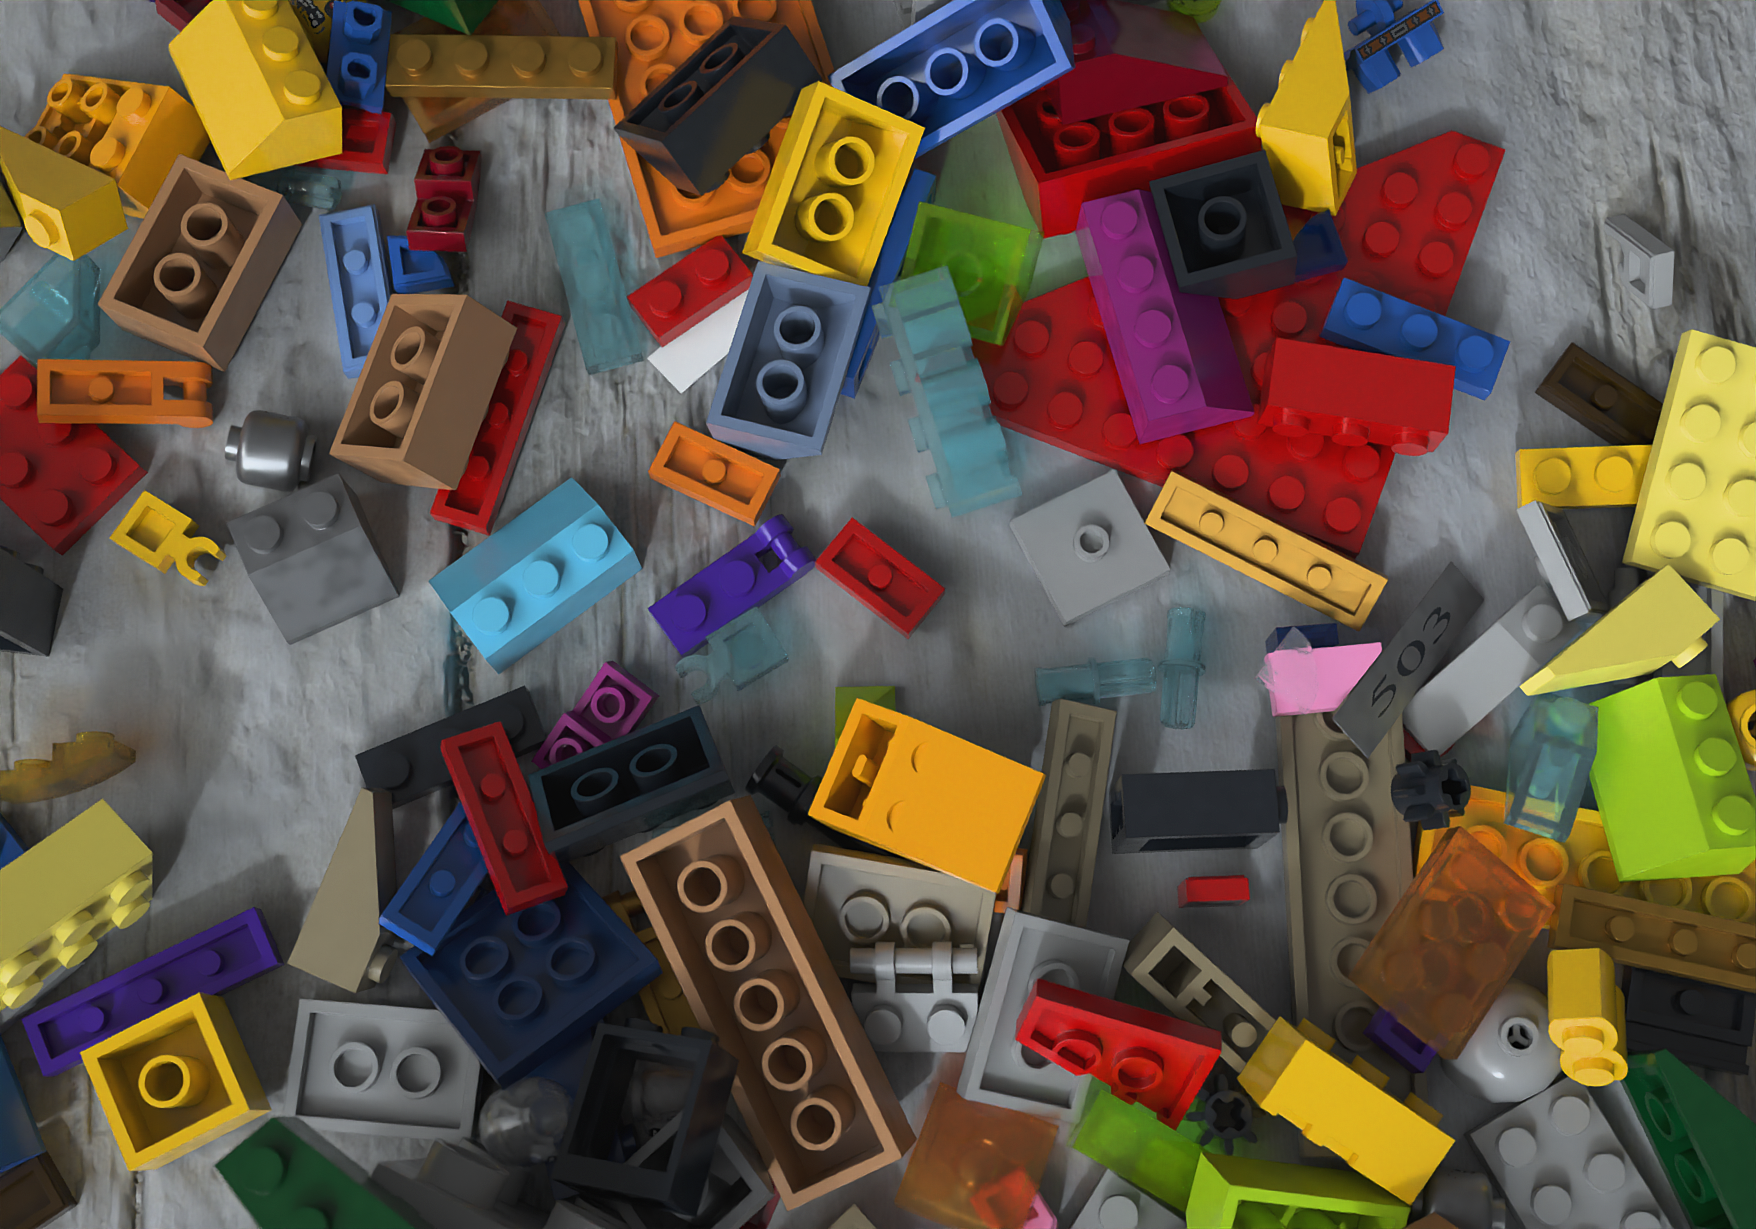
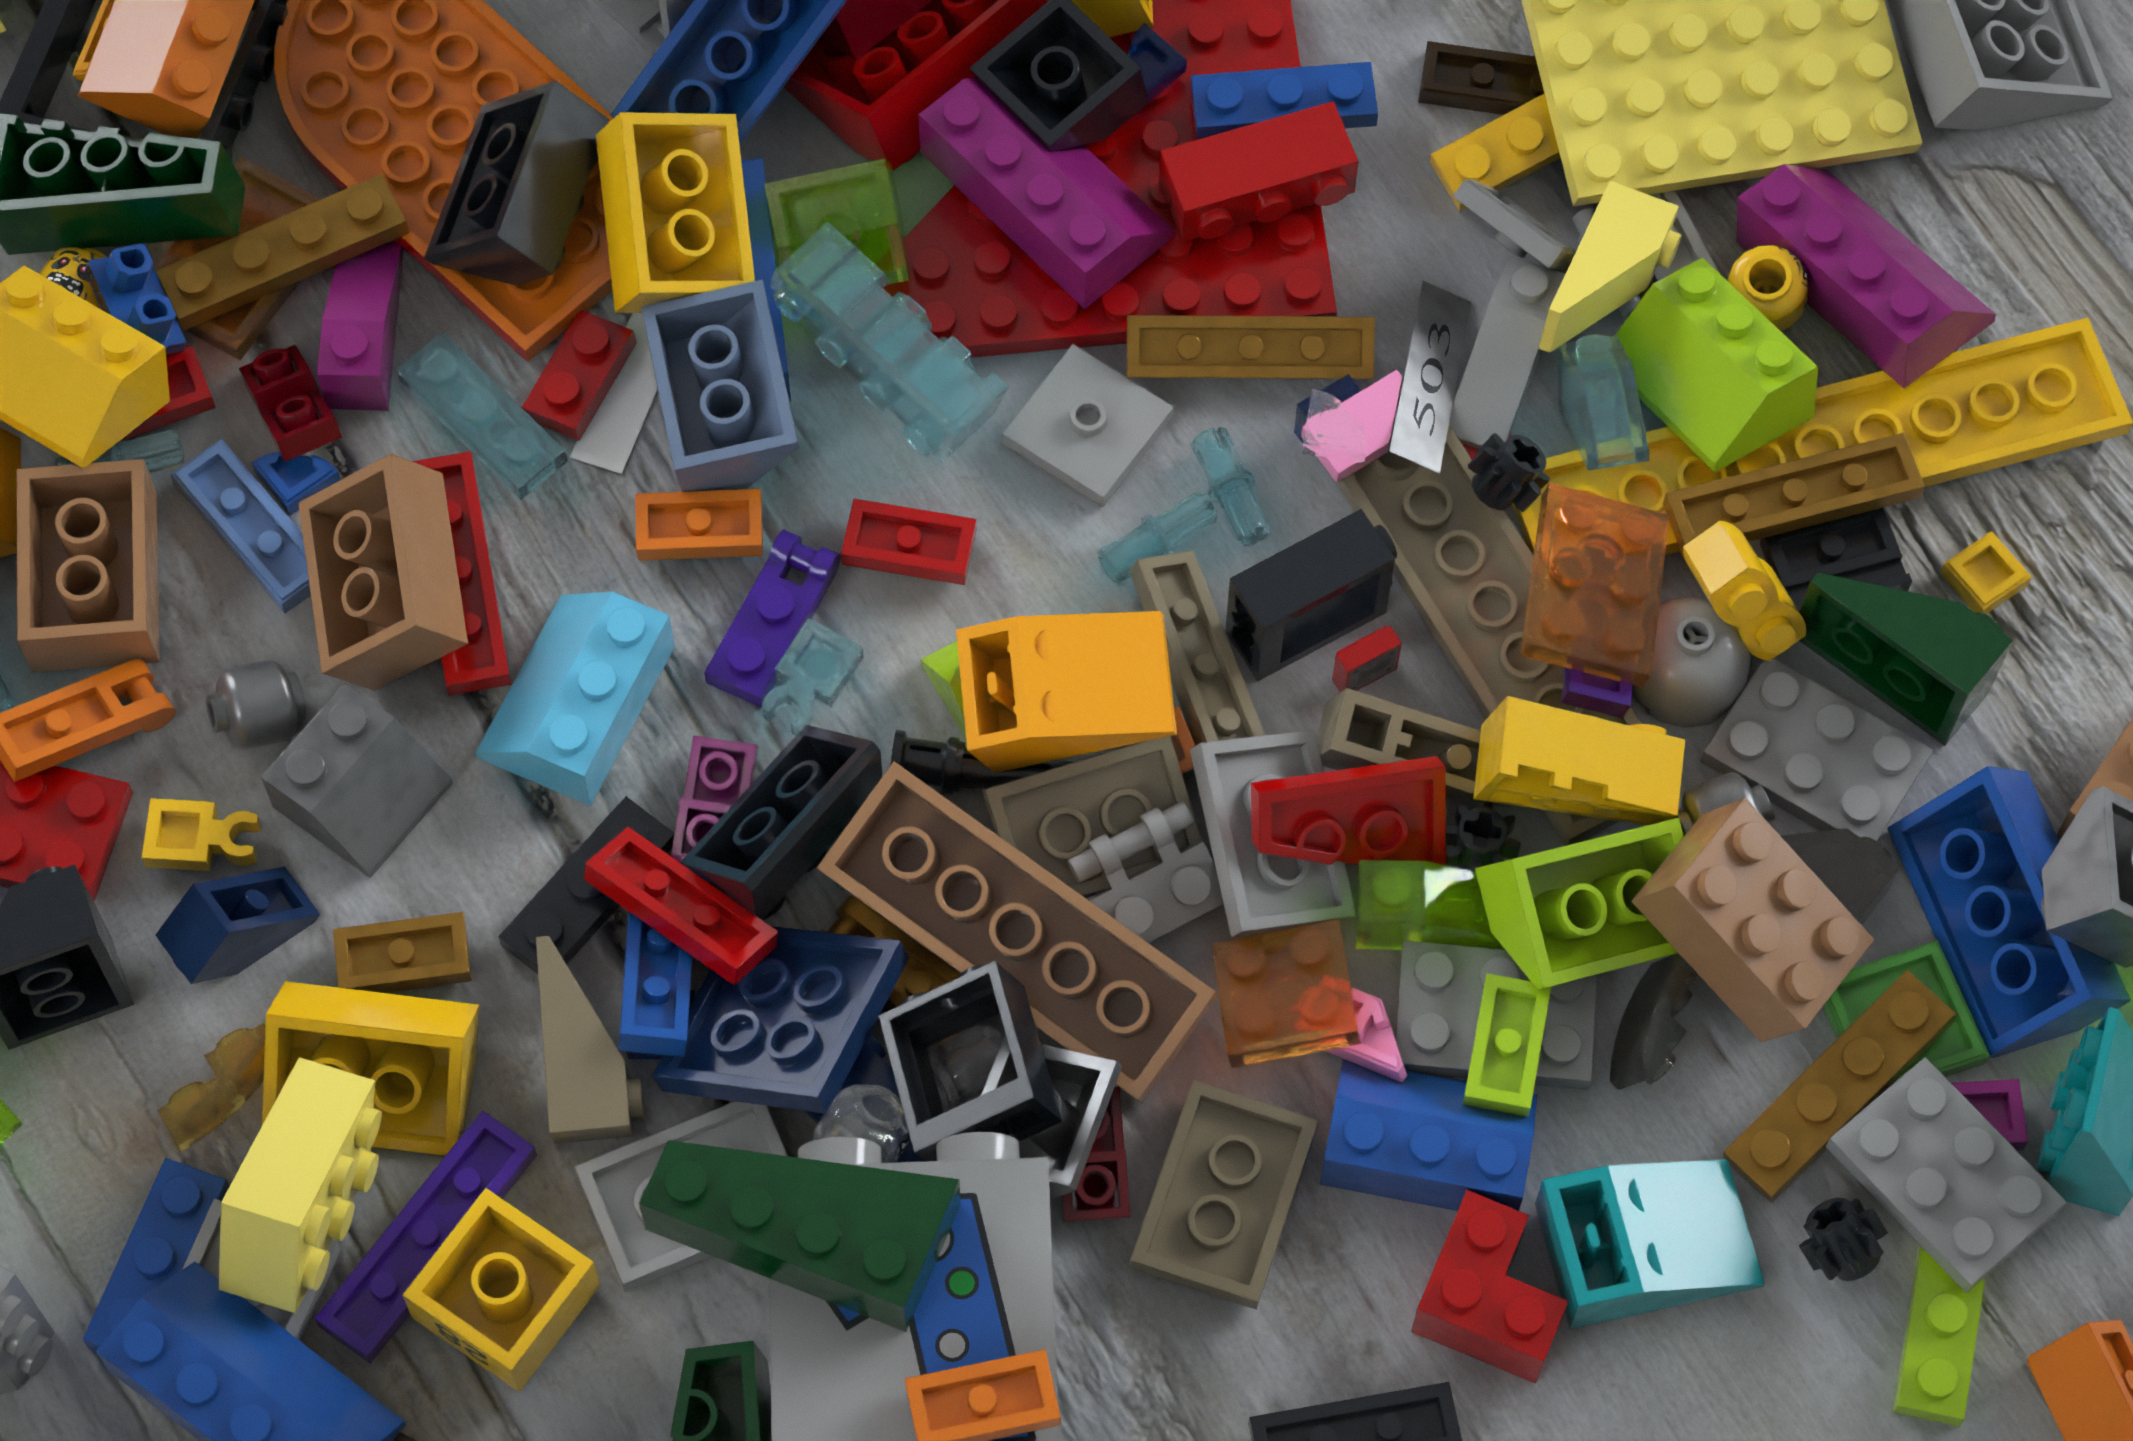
camera: 30 degrees left, 10 degrees down
(153, 633) = (234, 922): none -> dark blue slope
(198, 813) = (411, 1046): none -> yellow slope
(269, 731) = (403, 954): none -> pearl gold plate
(534, 163) = (361, 330): none -> magenta slope

